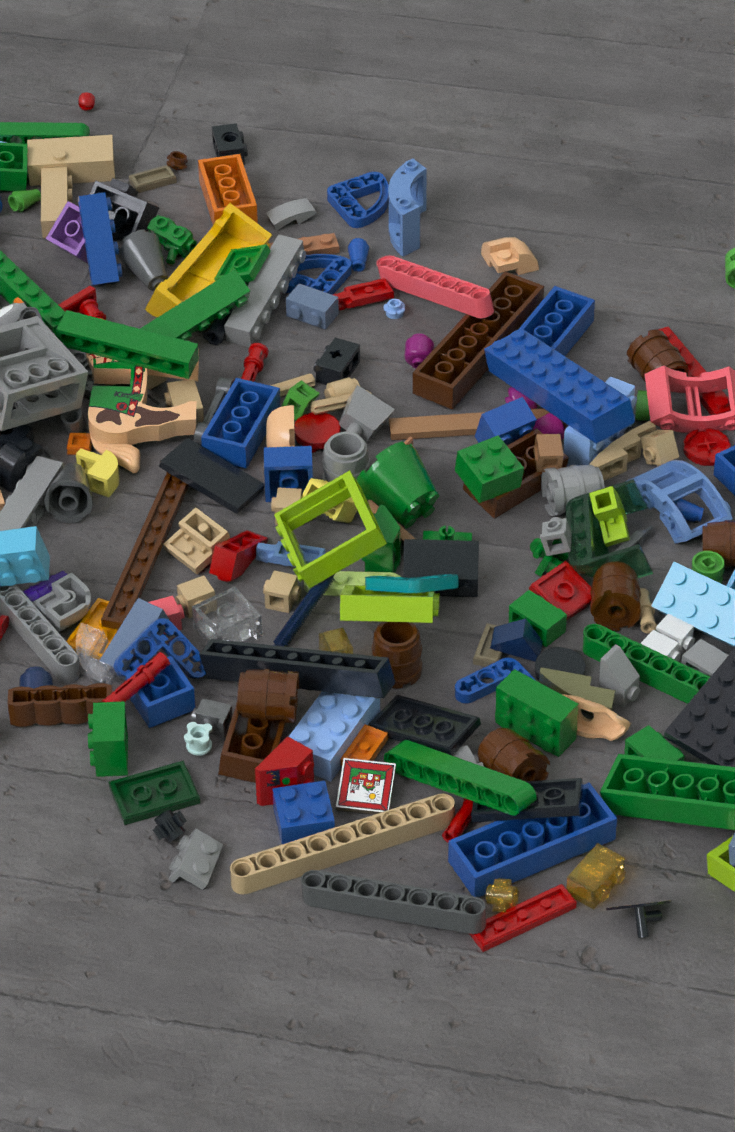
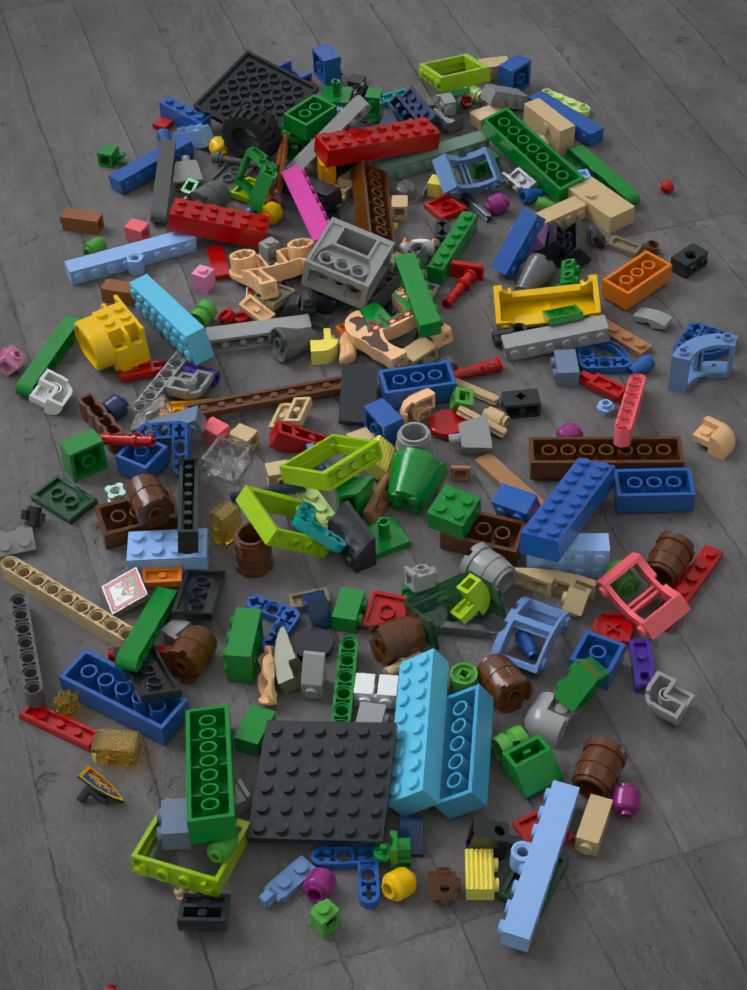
camera: 60 degrees right, 0 degrees up
(202, 308) = (488, 314): green brick -> none
(285, 766) = (104, 545): red slope -> none
(302, 810) = (81, 571): blue brick -> none
(548, 451) = (501, 536): medium nougat brick -> none

